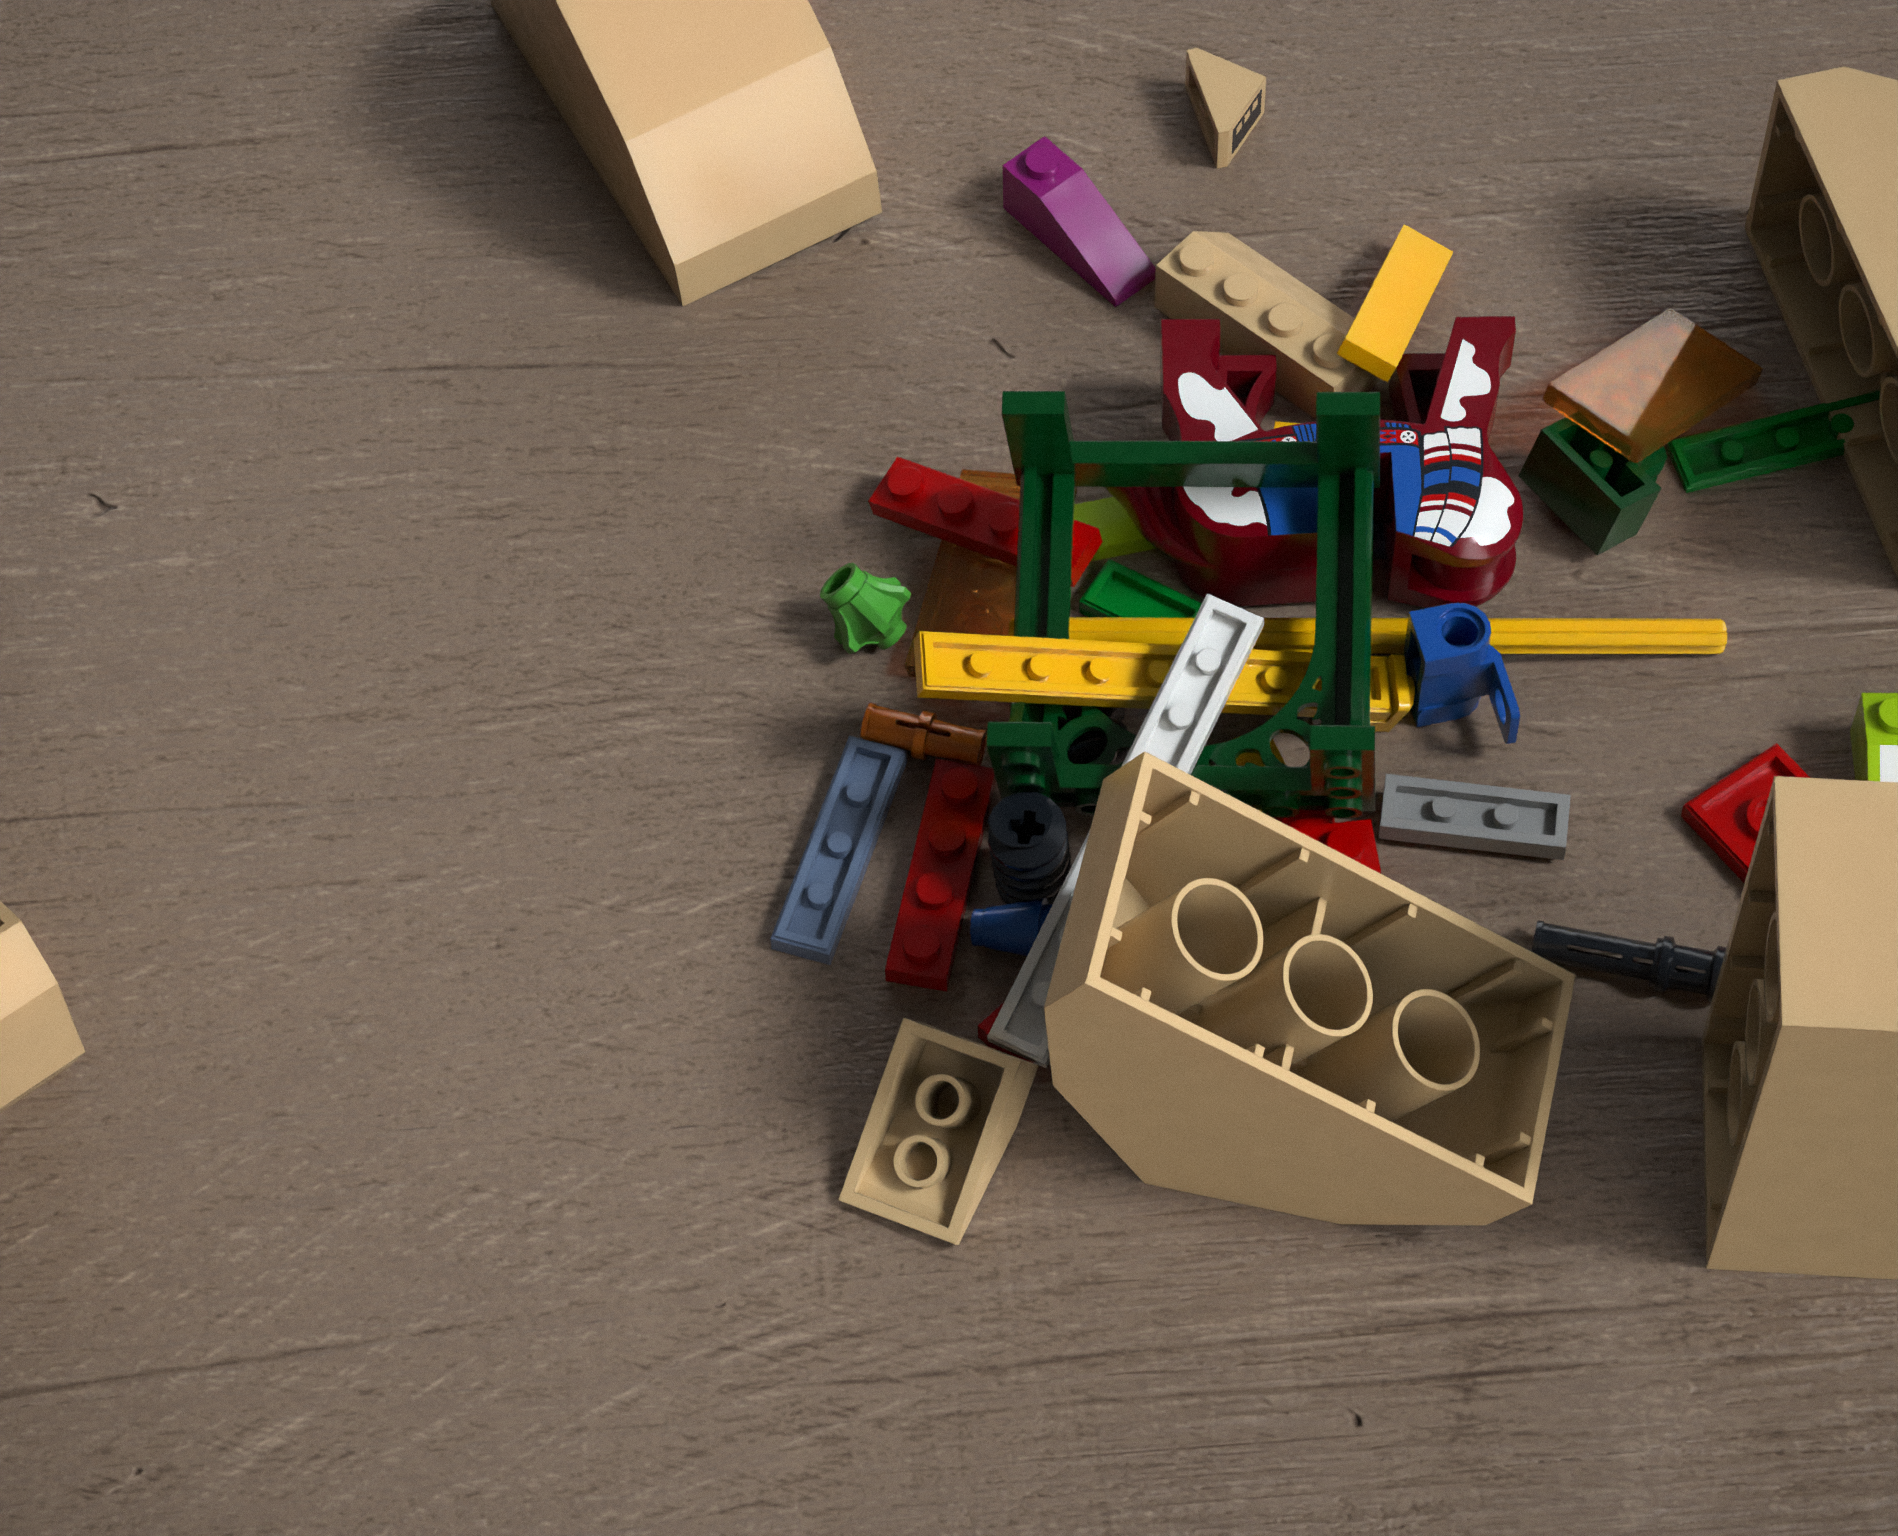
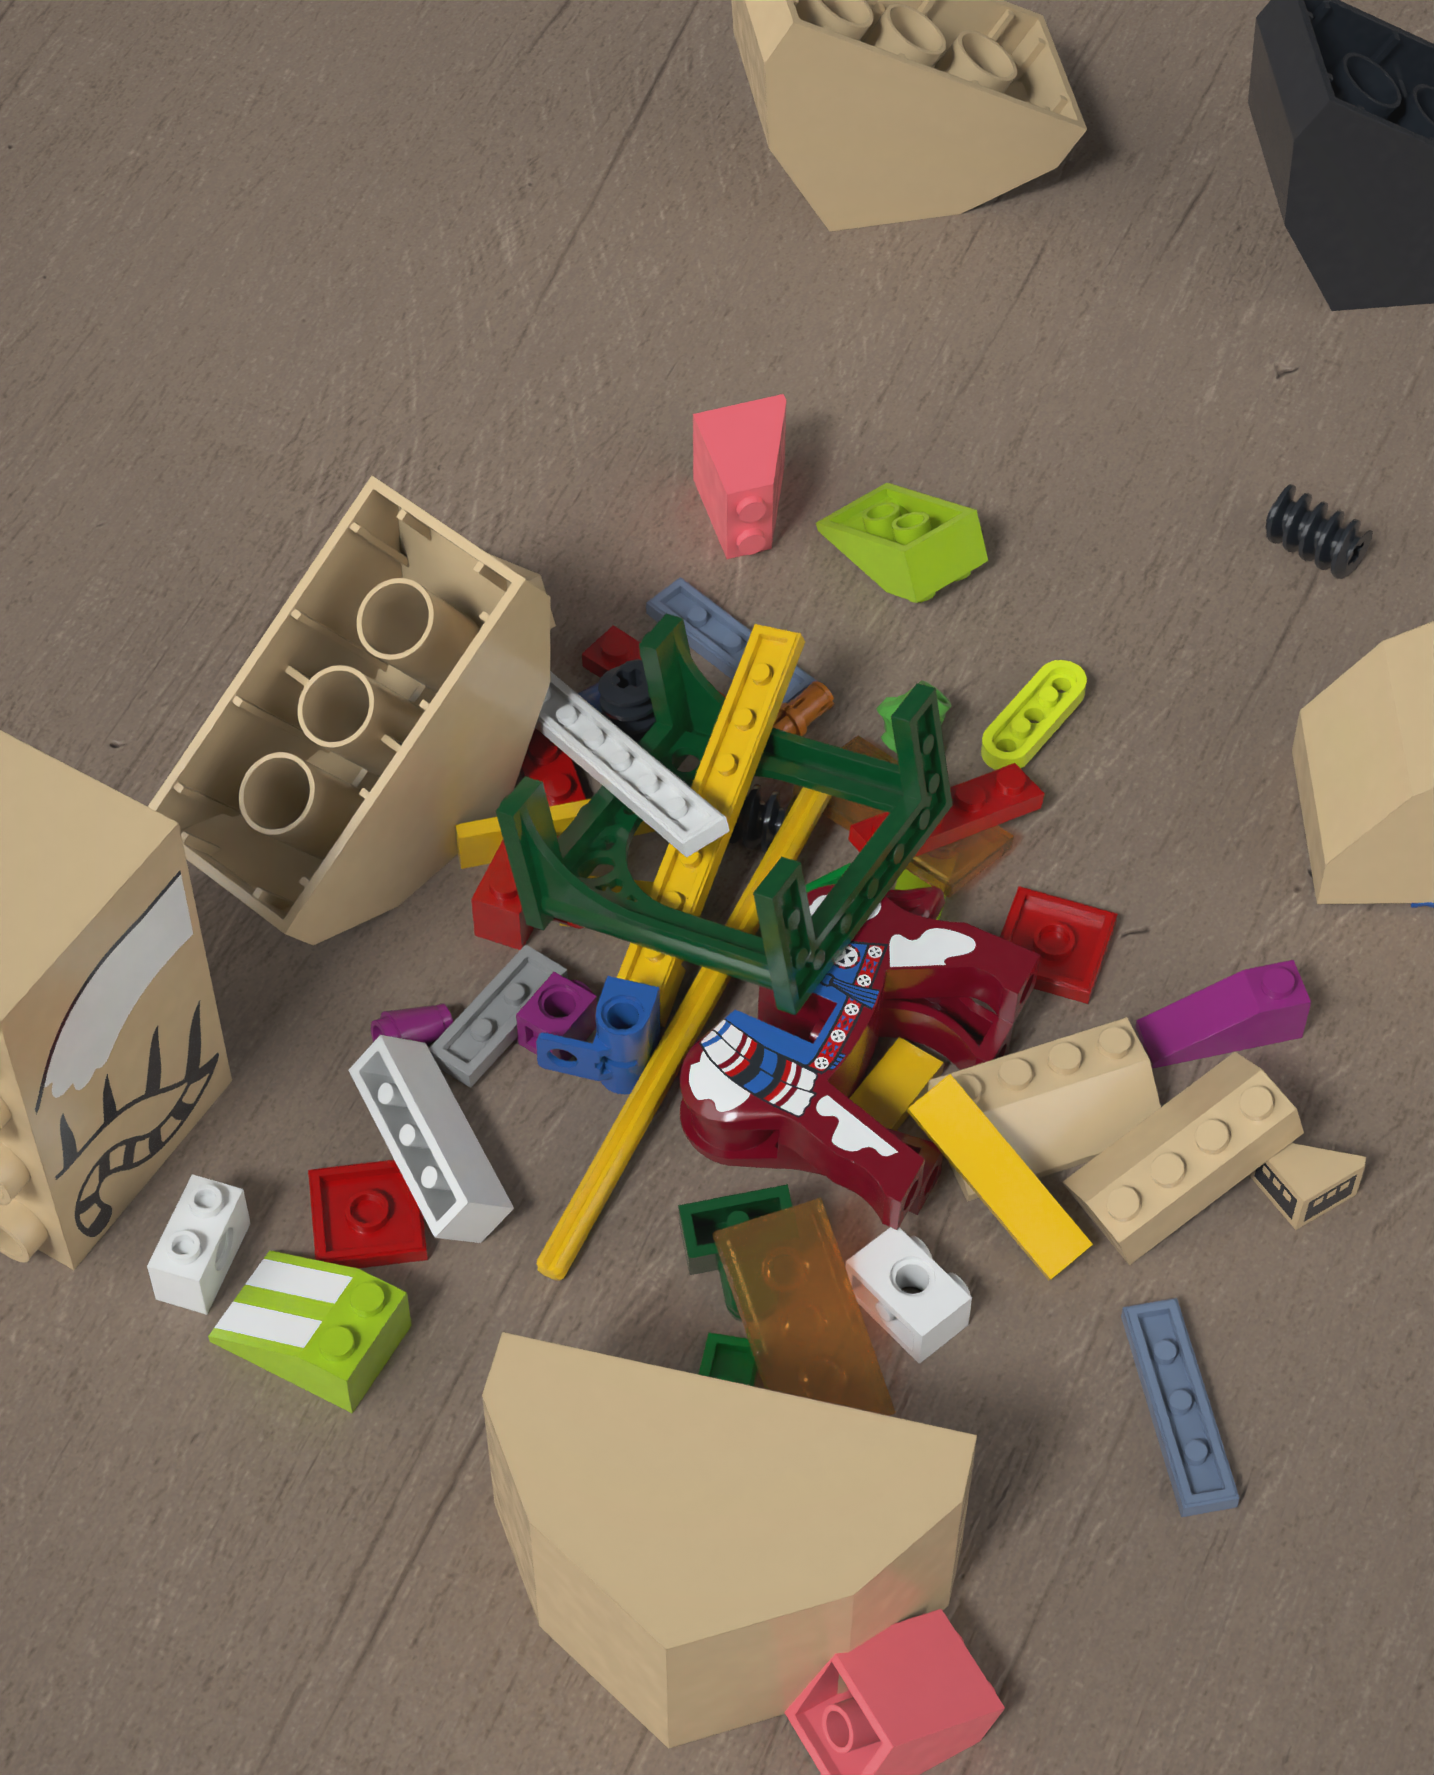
camera: 115 degrees right, 5 degrees down
(376, 365) = (1315, 535): none -> black piece
(590, 740) = (907, 540): none -> lime slope
(601, 911) = (741, 471): none -> coral slope
(761, 509) = (1035, 702): none -> neon yellow plate
(1091, 386) = (1067, 937): none -> red tile
(1277, 175) = (1185, 1156): none -> tan slope
(1455, 735) = (556, 998): none -> magenta brick
(1507, 124) = (1179, 1408): none -> sand blue tile
(1548, 885) = (415, 1024): none -> magenta cone
(1551, 335) = (917, 1320): none -> white brick
(1552, 944) = (299, 1067): black pin -> none
(1670, 783) = (430, 1139): none -> white brick

